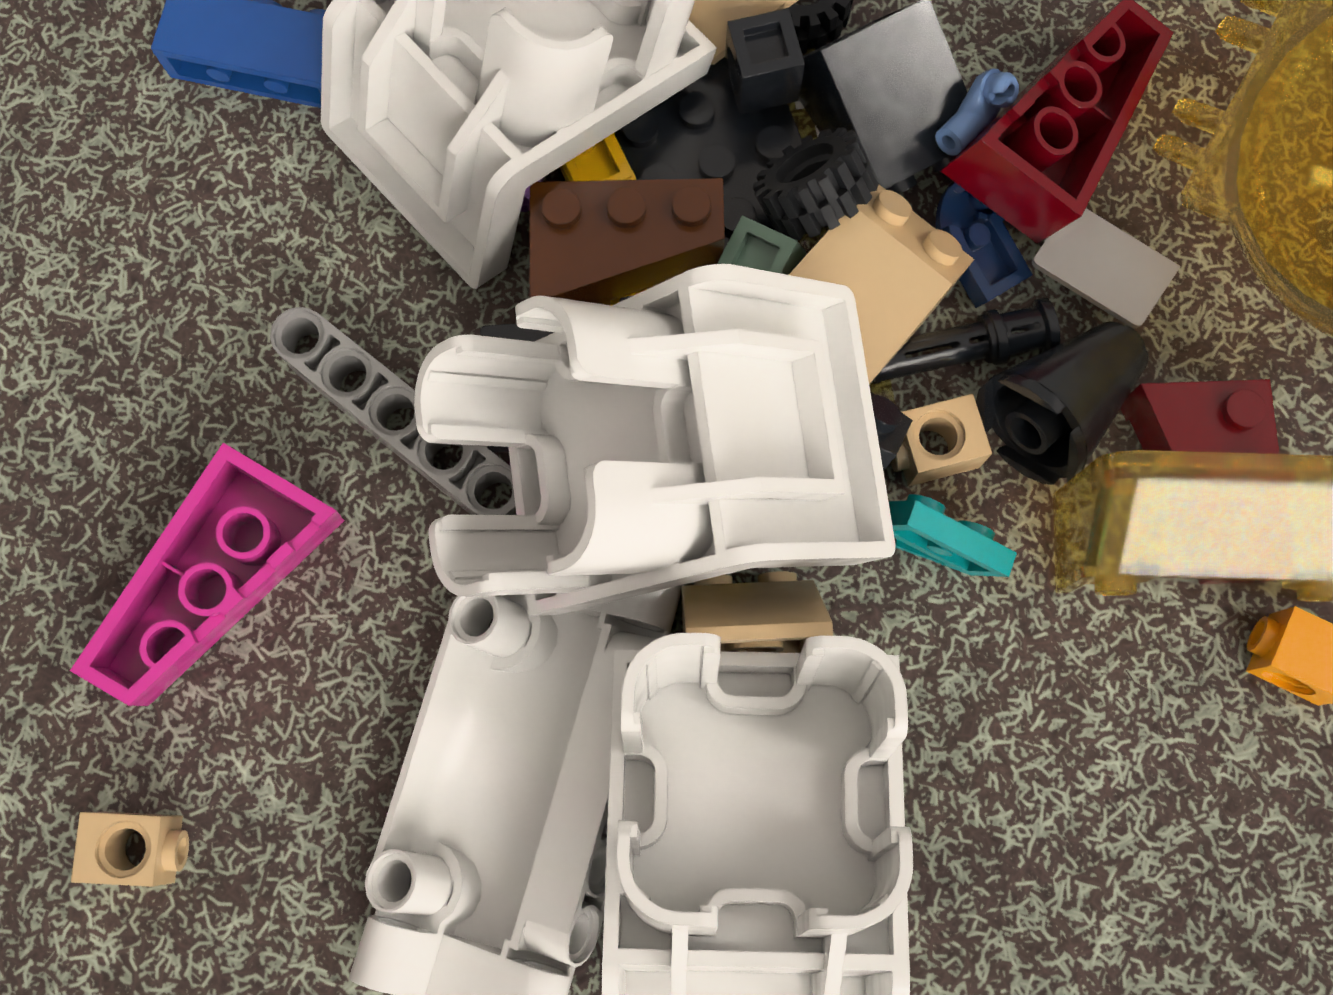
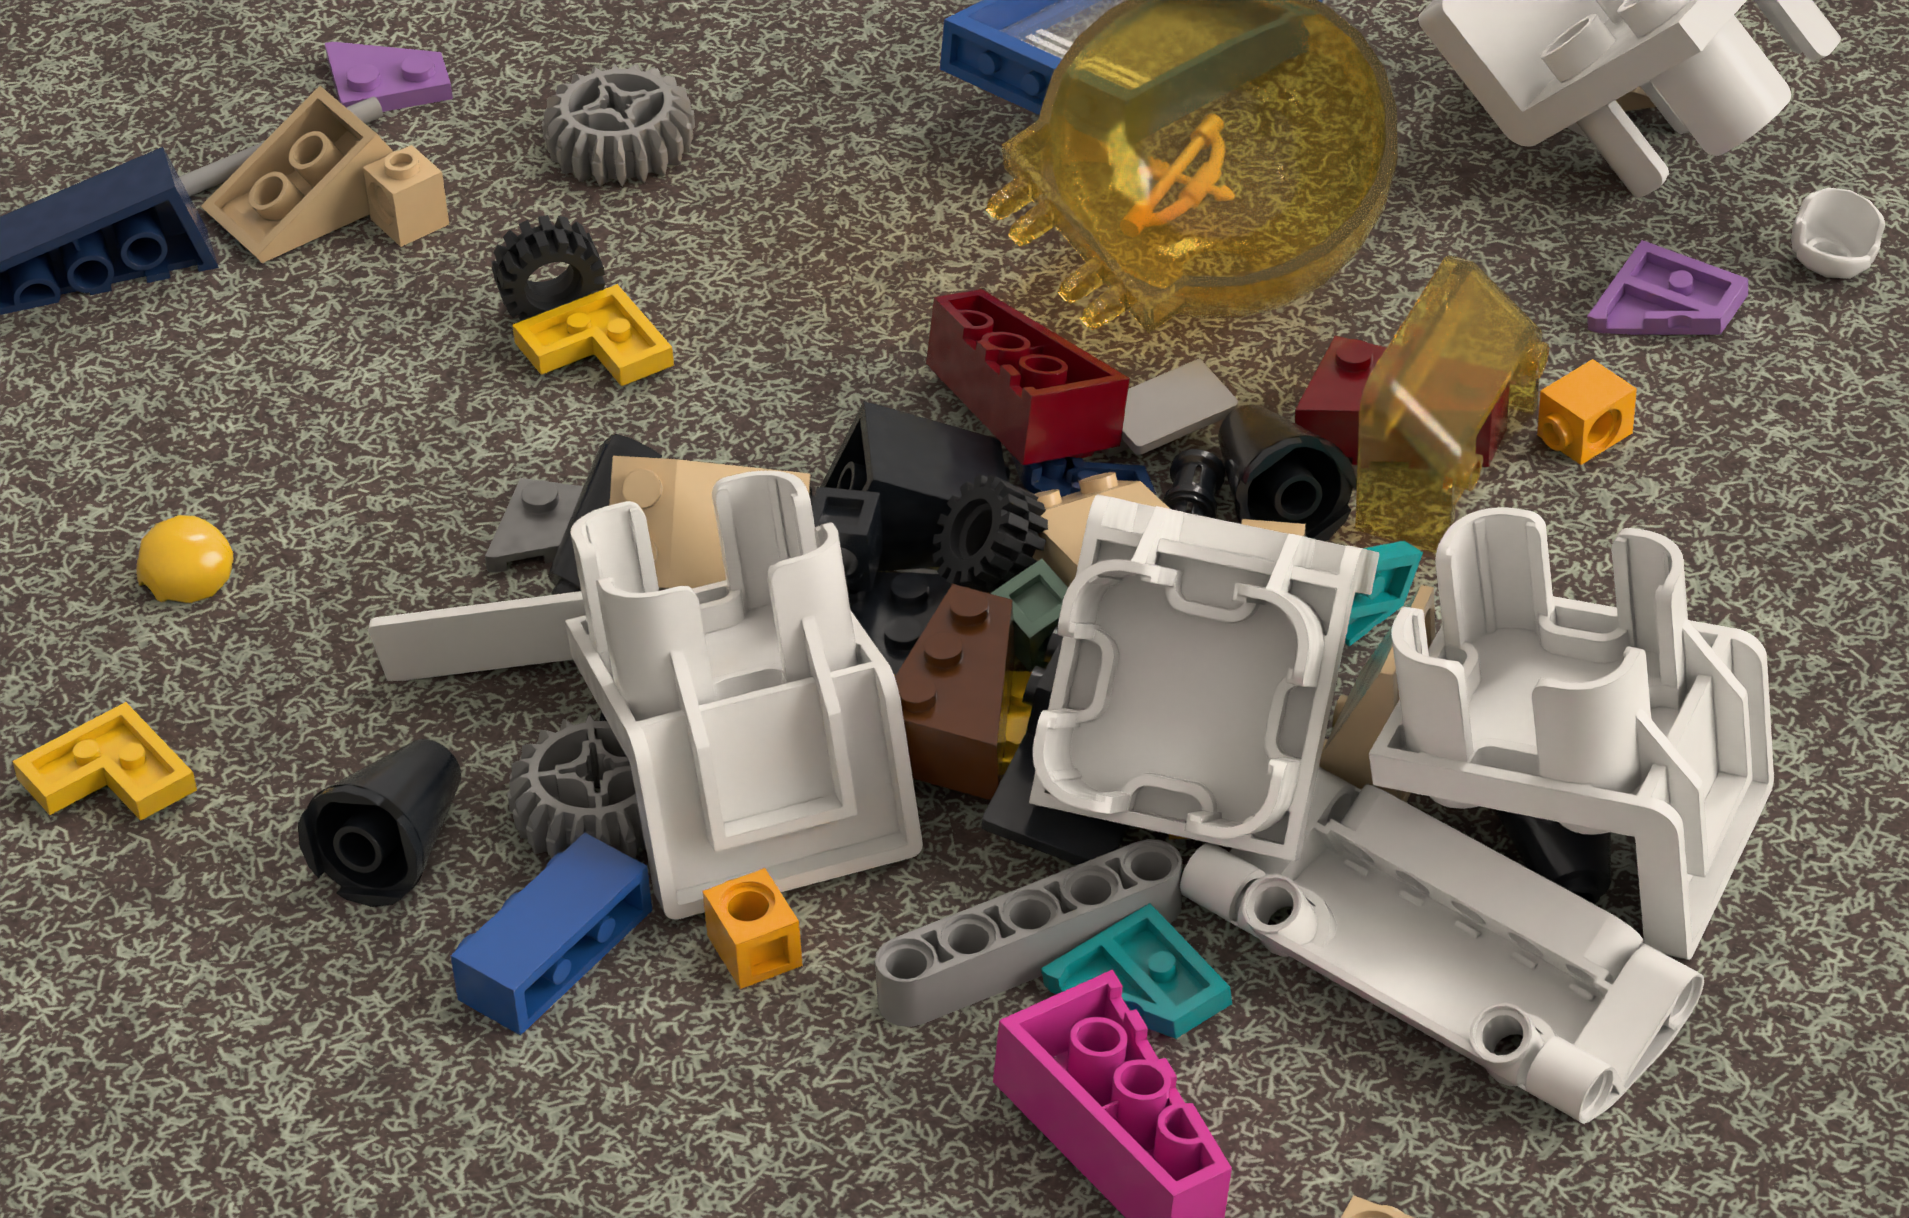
camera: 65 degrees left, 35 degrees down
(325, 218) = (752, 928): none -> light orange brick
(390, 531) = (1156, 968): none -> teal wing
(978, 109) = (981, 422): medium blue arm -> none

